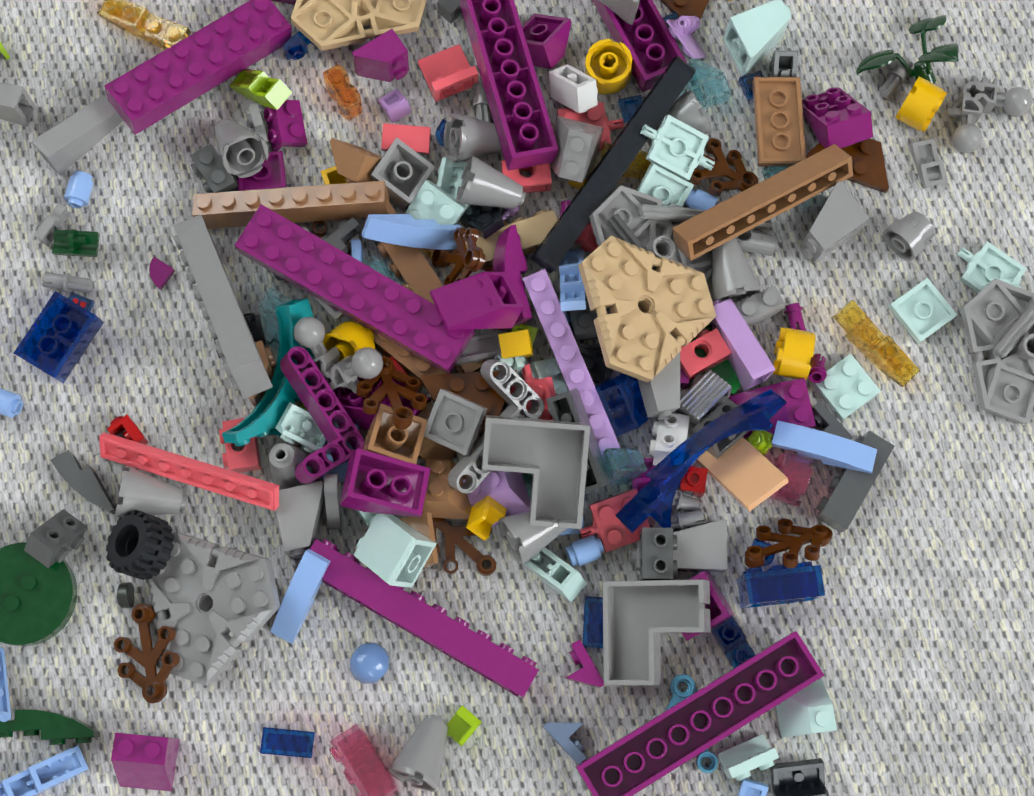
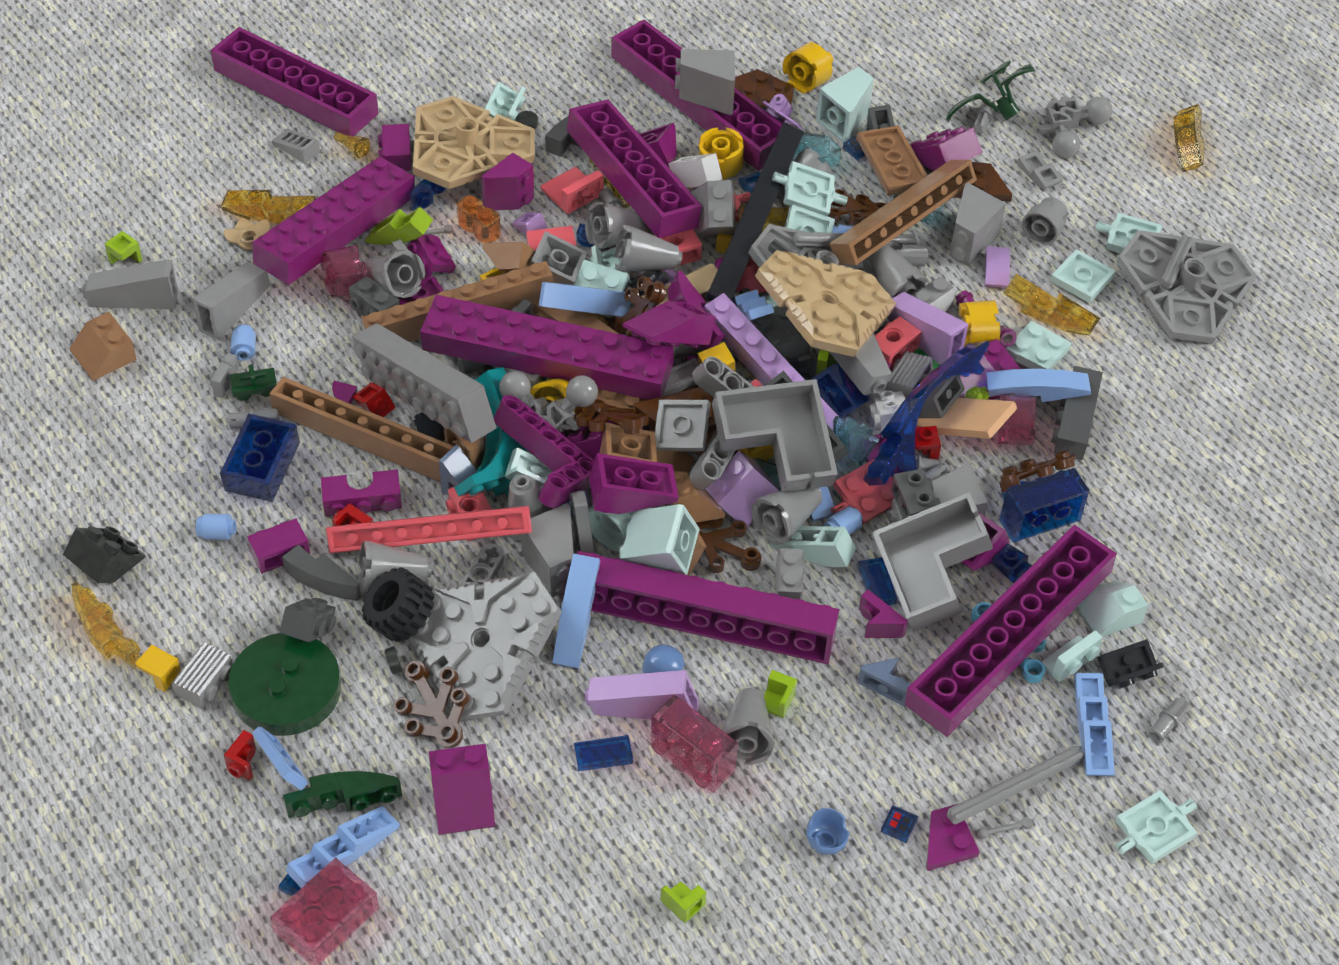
camera: 10 degrees left, 25 degrees down
(53, 439) = (272, 543): none -> magenta brick
(117, 48) = (246, 232): none -> tan plate
(160, 326) = (359, 427): none -> medium nougat brick
(165, 404) = (380, 495): none -> magenta arch
(182, 291) = (374, 400): none -> red bracket
(192, 128) = (342, 269): none -> clear pink brick
(234, 405) = (454, 469): none -> sand blue slope
(249, 509) = (480, 564): none -> light grey beam
(313, 91) = (447, 229): none -> light grey hinge
(337, 699) = (638, 694): none -> lavender slope
(484, 515) = (737, 506): yellow panel -> none
(512, 602) = (789, 573): none -> light grey brick
(840, 277) = (997, 267): none -> lavender slope
(921, 104) = (1014, 124): yellow brick -> none

